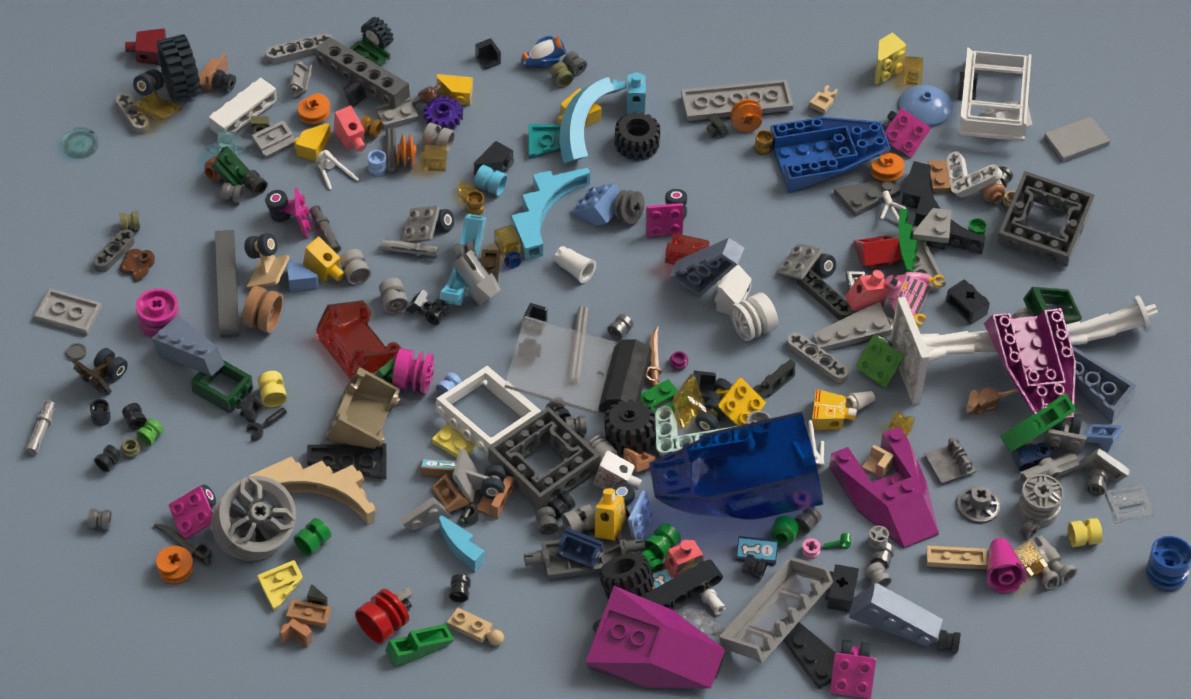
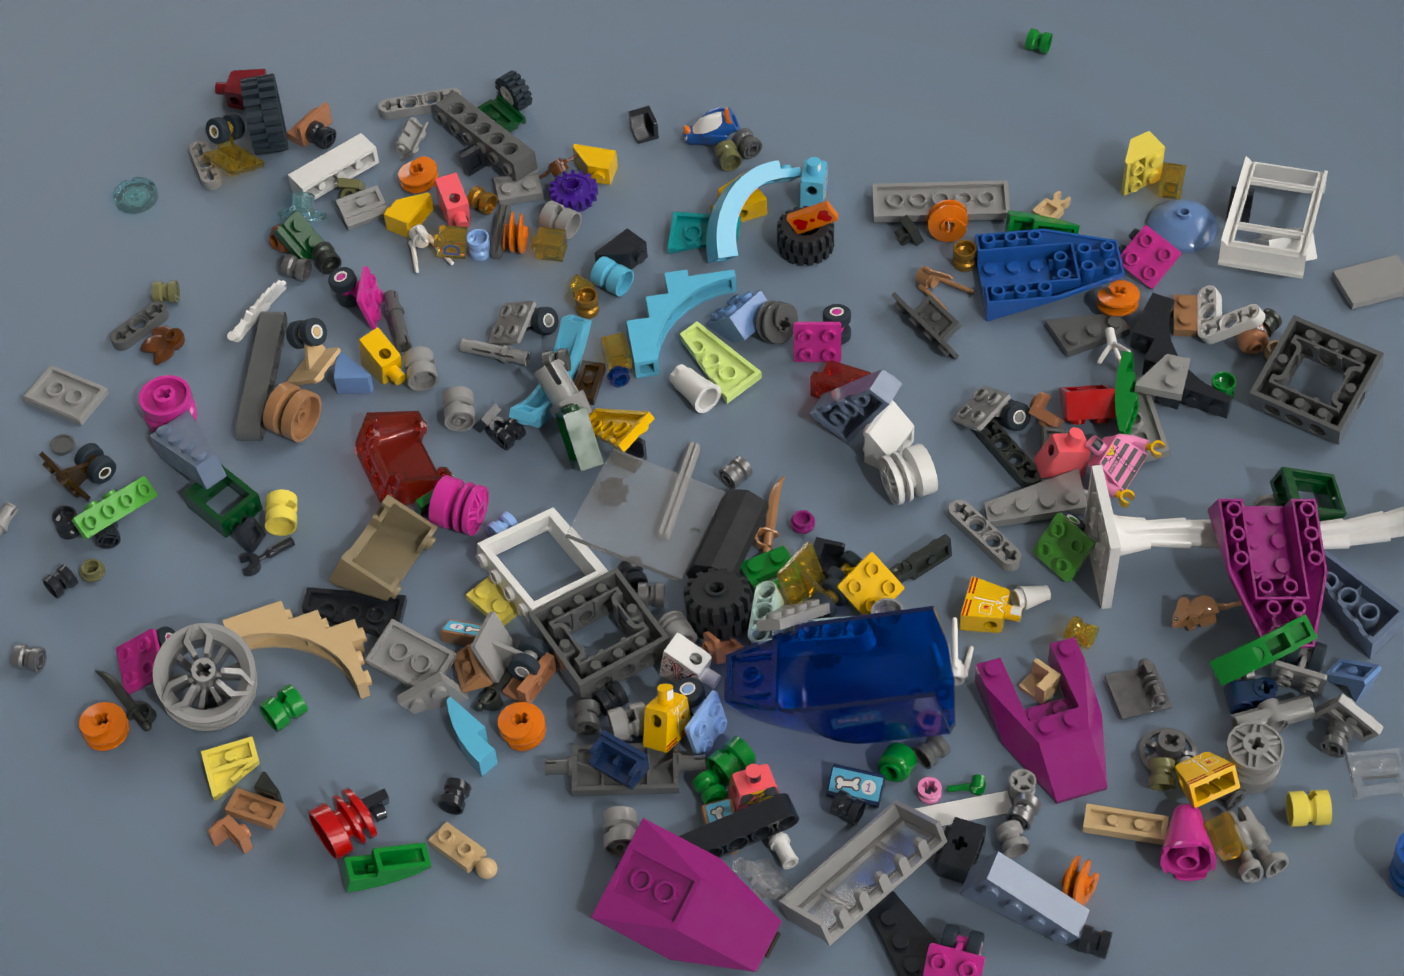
camera: 15 degrees right, 0 degrees up
(137, 396) = (113, 507): none -> bright green bracket
(149, 432) = (119, 553): bright green wheel -> none
(209, 232) = (253, 314): none -> white animal
(355, 162) = (451, 241): none -> clear yellow brick
(400, 488) = (408, 655): none -> light grey tile
(497, 310) = (578, 437): none -> window
(499, 532) = (522, 726): none -> orange piece
(524, 299) = (619, 427): none -> yellow wing
(589, 241) = (720, 361): none -> yellowish green wing
(590, 600) = (619, 828): none -> light grey wheel
(627, 572) = (672, 803): black tyre -> none
(643, 121) = (812, 217): none -> orange tile
(691, 429) = (792, 615): none -> light grey wing
(740, 162) = (930, 278): none -> medium nougat plant
(750, 195) = (934, 318): none -> dark grey bracket
(804, 112) = (1026, 221): none -> green slope
(845, 557) = (969, 808): none -> white sticker
(848, 264) = (1045, 417): none -> nougat bracket
(933, 601) = (1079, 884): none -> orange piece
(967, 301) = (1196, 479): black brick -> none
(977, 519) = (1161, 774): none -> olive wheel
(1010, 518) = (1206, 777): none -> yellow torso

